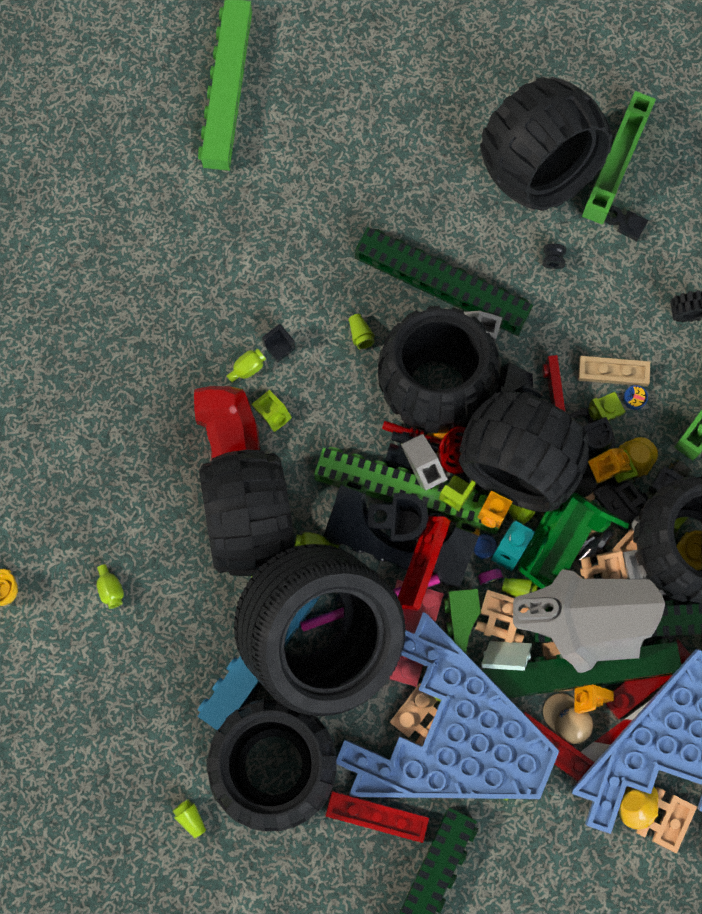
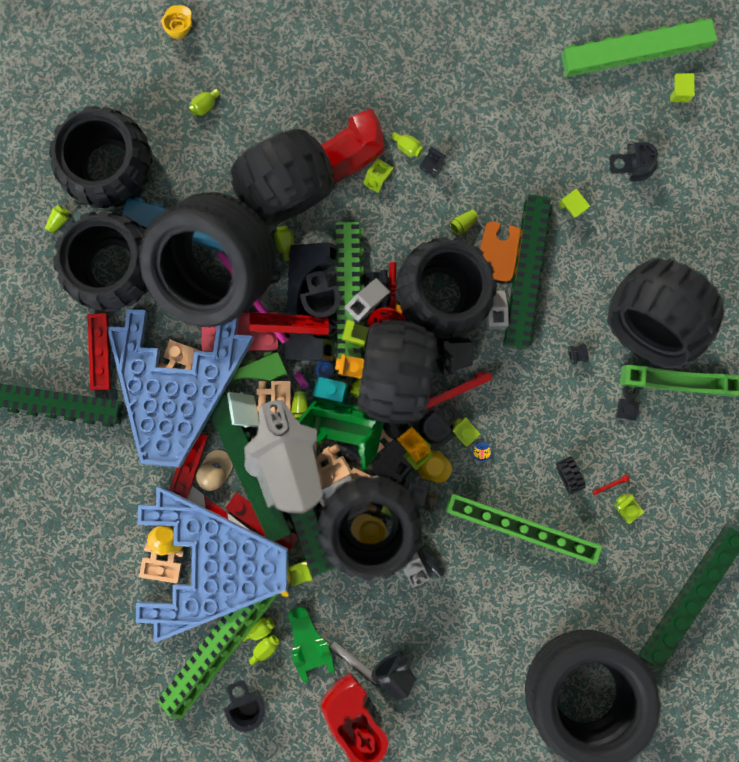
camera: 75 degrees right, 10 degrees up
(98, 719) = (85, 133): none -> black tyre
(291, 51) = (683, 87): none -> lime panel
(355, 124) = (639, 161): none -> black container
(381, 204) = (574, 203): none -> lime panel
(407, 300) = (500, 253): none -> orange piece
(590, 697) = (230, 478): light orange bracket -> none
(614, 371) = (497, 428): tan plate -> none

